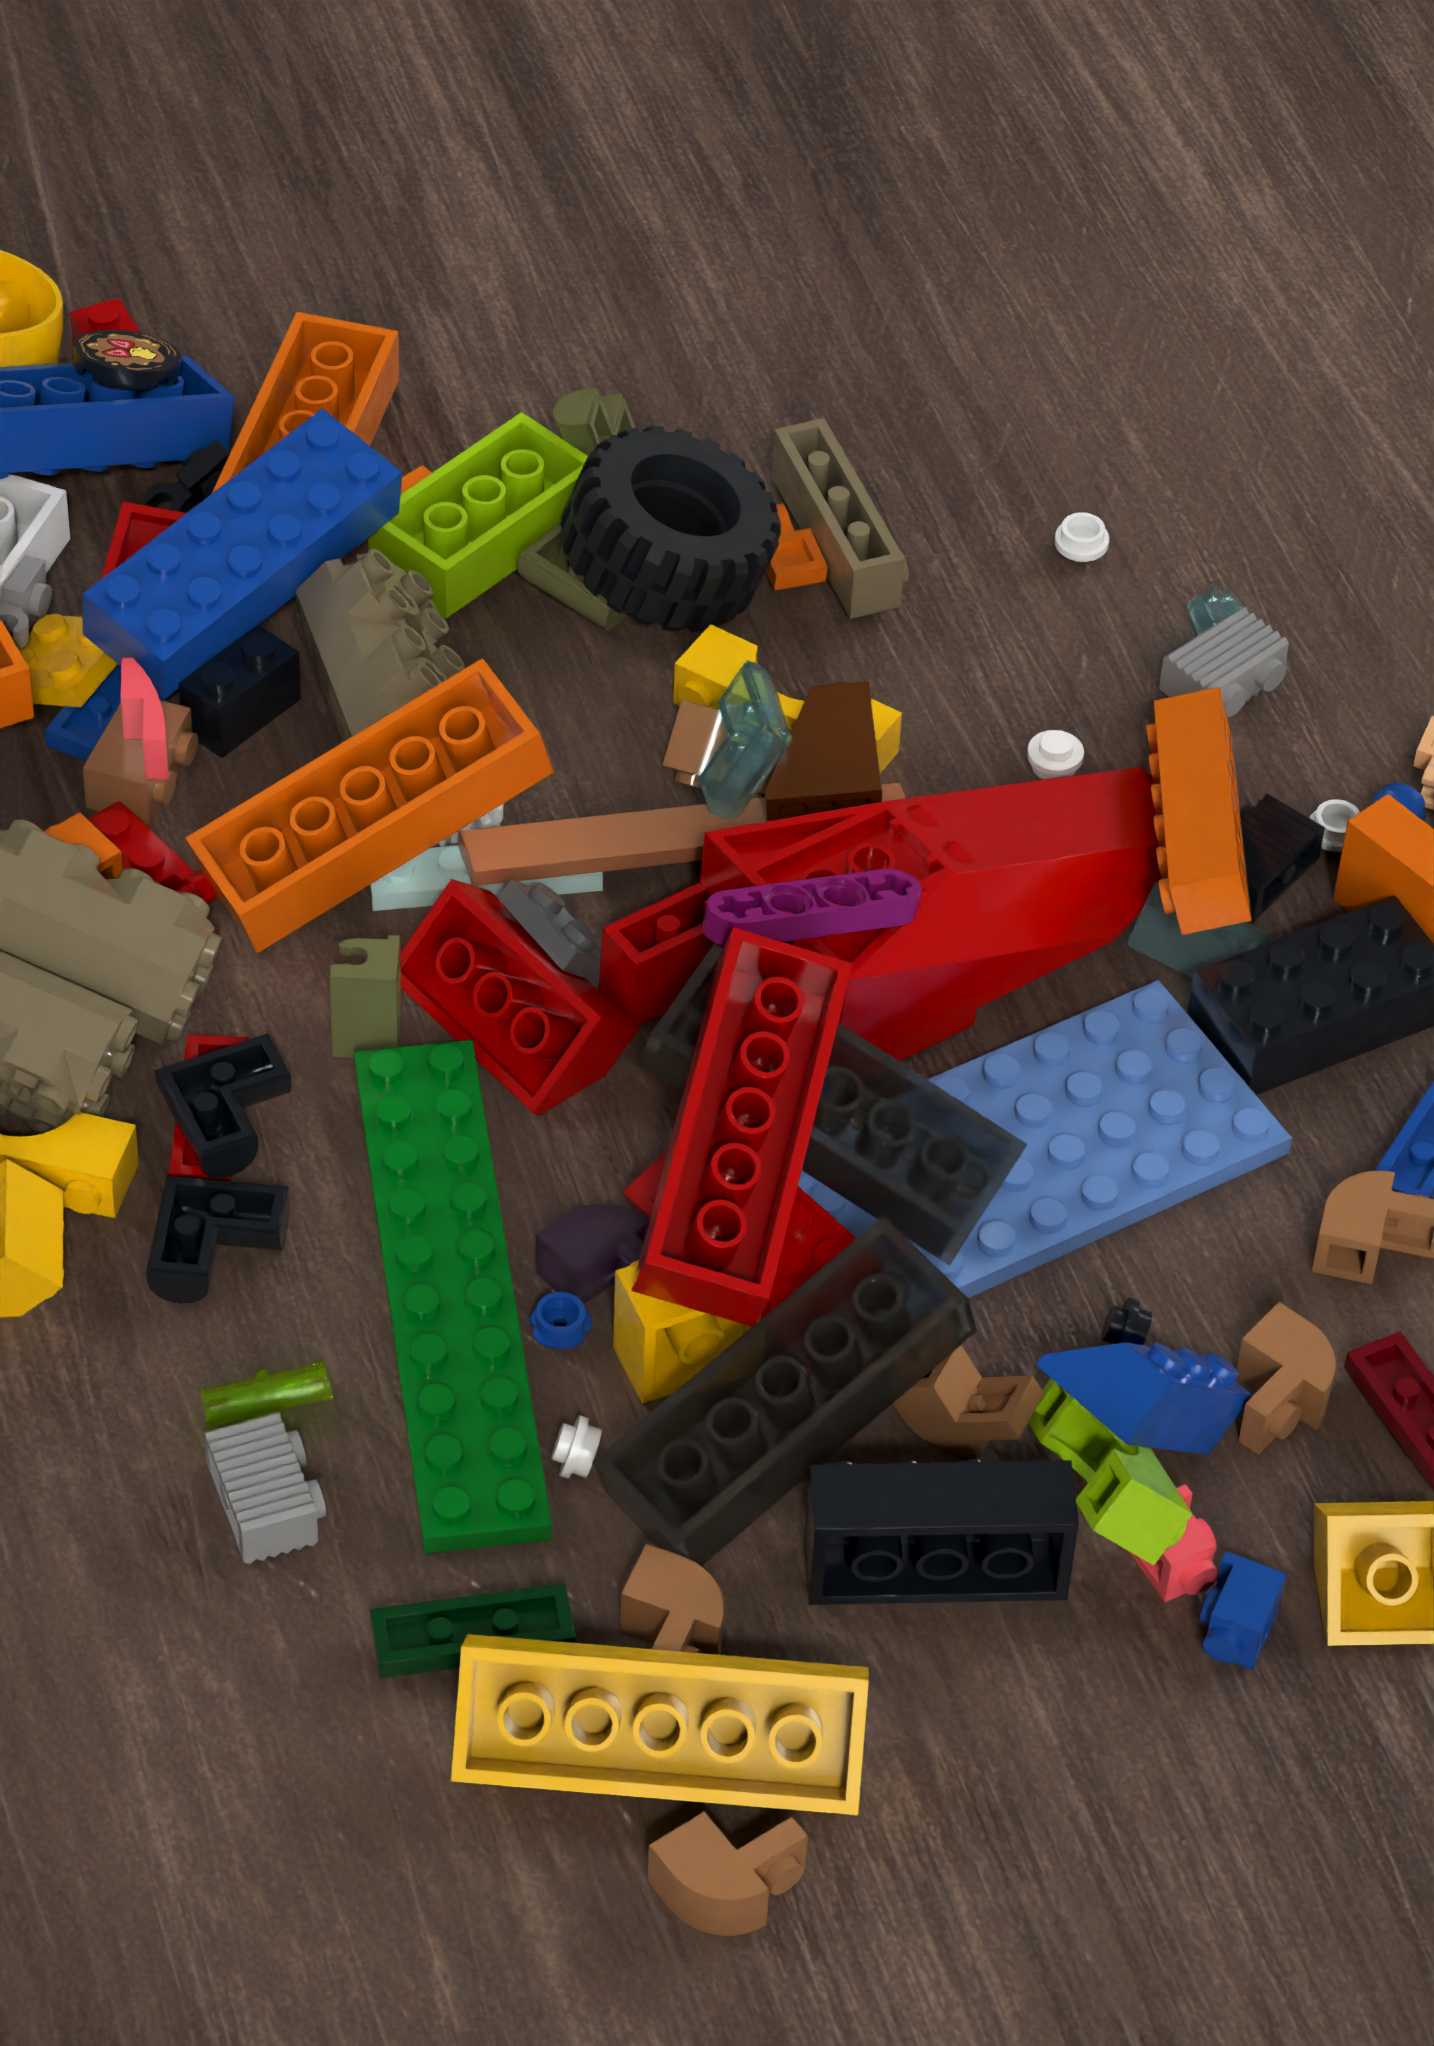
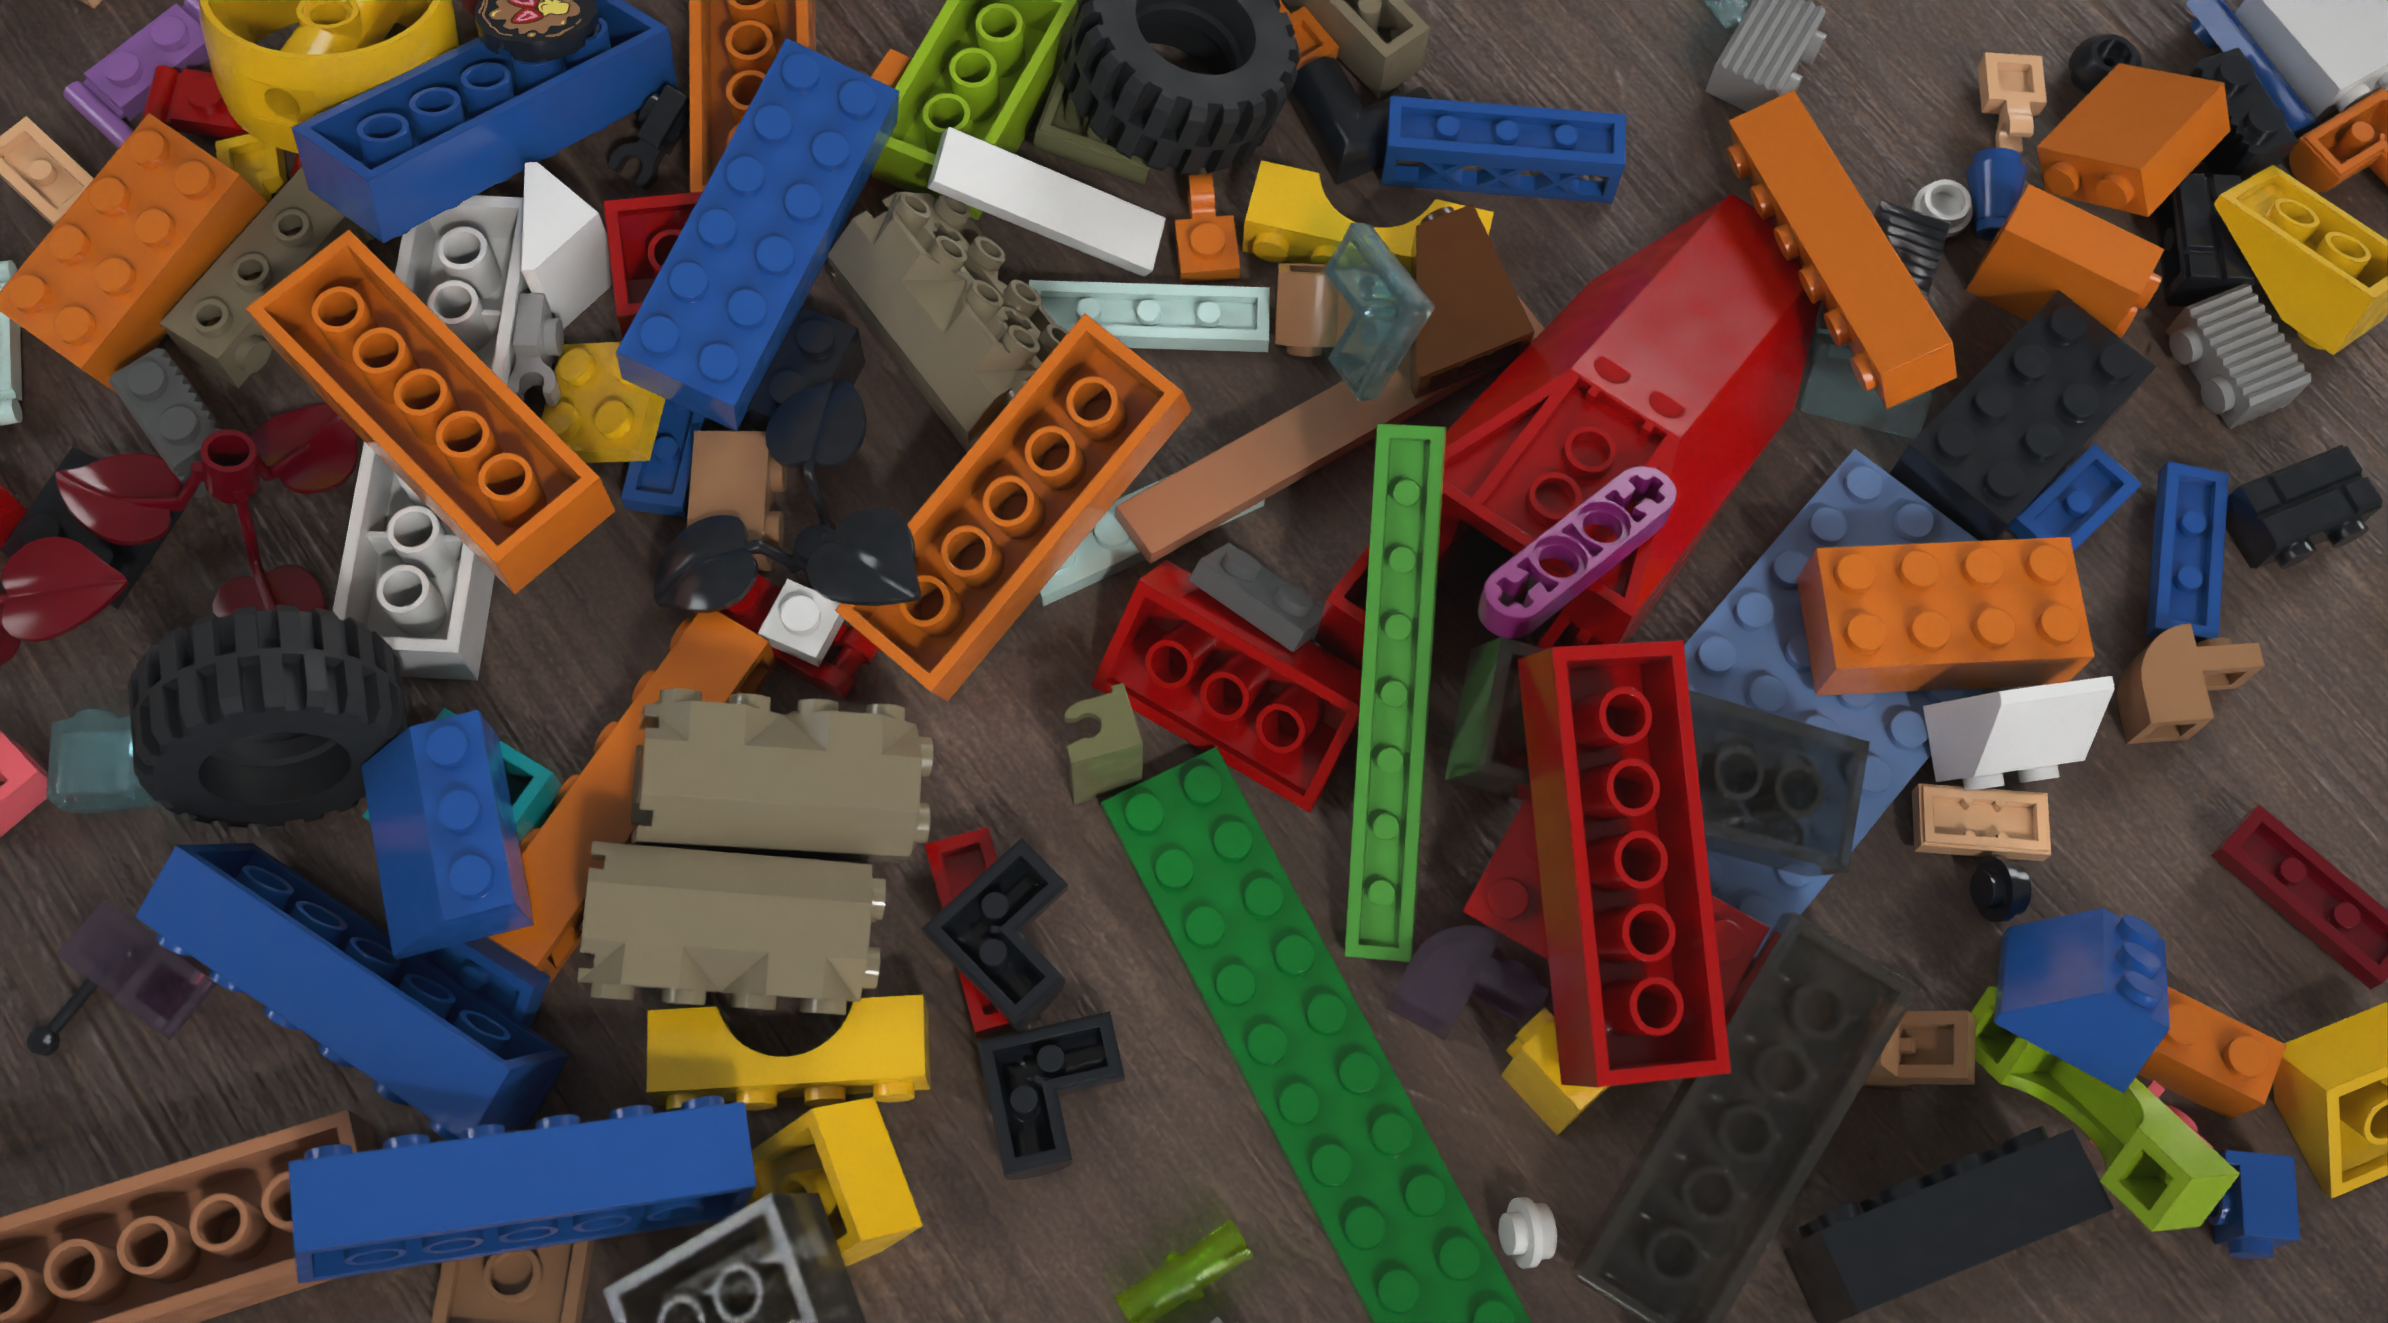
camera: 20 degrees left, 20 degrees up
(74, 533) = (562, 246): none -> white slope
(144, 718) = (731, 467): coral slope -> none
(156, 849) = (802, 623): none -> white plate
(219, 787) = (860, 563): none -> black plant
(505, 606) = (1046, 202): none -> white tile
(560, 1309) = (1443, 1055): blue plate -> none
(593, 727) = (1164, 313): none -> light aqua plate
(629, 1002) = (1395, 691): none -> bright green plate
(642, 684) = (1205, 241): none -> orange plate
(821, 642) = (1340, 127): none -> black brick
(936, 667) = (1504, 144): none -> blue fence
(1055, 754) = (1644, 203): white plate -> none
(1120, 1271) = (1981, 822): none -> light nougat plate
(1159, 1100) = (1943, 616): none -> orange brick
(1187, 1197) = (2015, 731): none -> white slope
(1244, 1488) = (2213, 1059): none -> orange brick
(1292, 1373) = (2179, 884): medium nougat brick -> none
(1345, 1075) = (2078, 500): none -> blue plate

